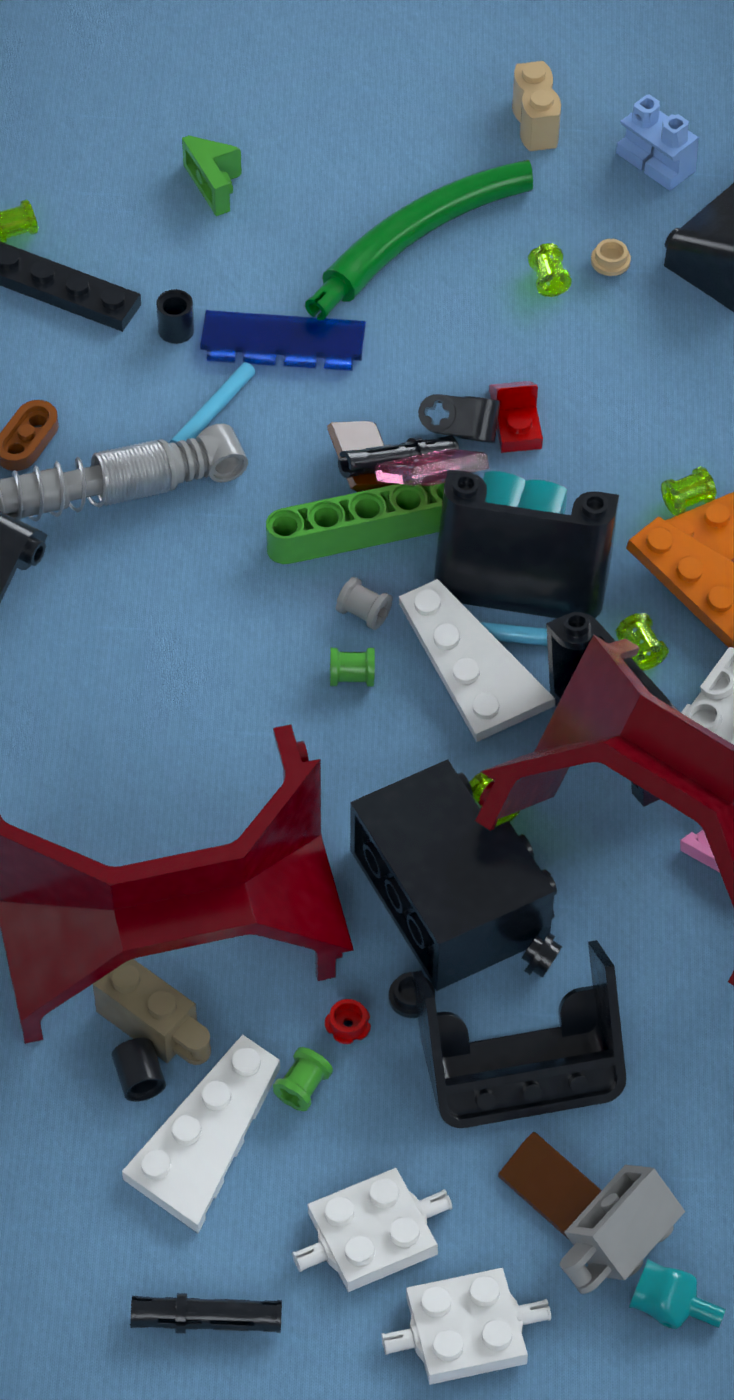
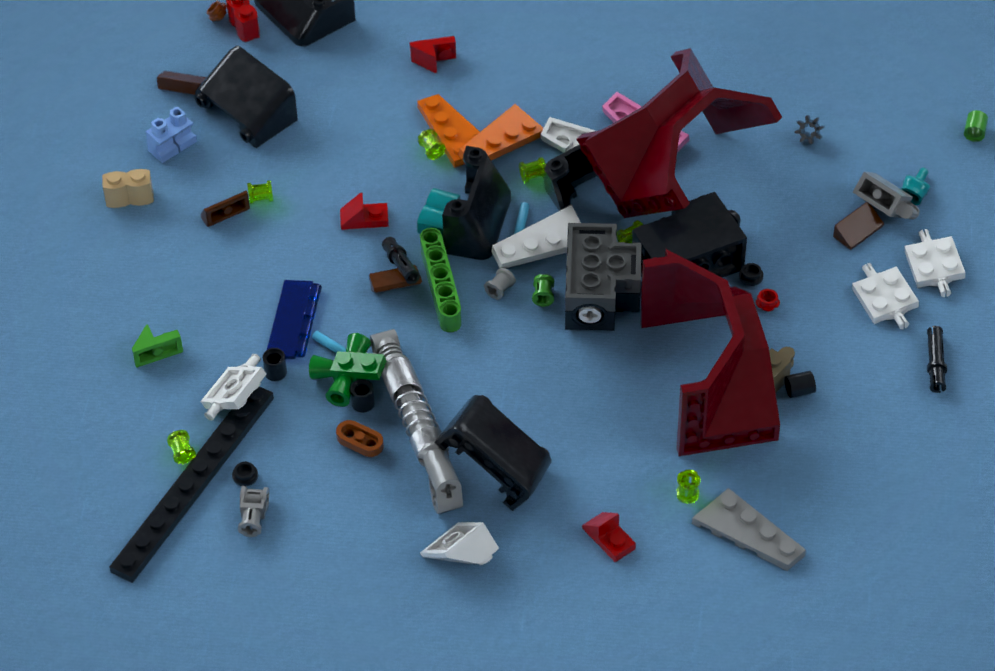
camera: 85 degrees left, 5 degrees down
(110, 427) = (362, 395): none -> black beam
(117, 265) = (233, 387): none -> white plate
(155, 401) = (347, 368): none -> green brick
(195, 1146) = (837, 363): white wing -> none
(302, 1078) = (803, 317): bright green bush -> none
(362, 718) = (600, 277): none -> dark grey piece
(410, 223) = (217, 256): green animal -> none
(430, 467) = (423, 235): clear pink plate -> none
(468, 417) = (371, 234): black piece -> none
(506, 230) = (225, 209): none -> reddish brown slope
(530, 1070) = (790, 220): black windscreen -> none
(611, 257) = (252, 166): tan plate -> none

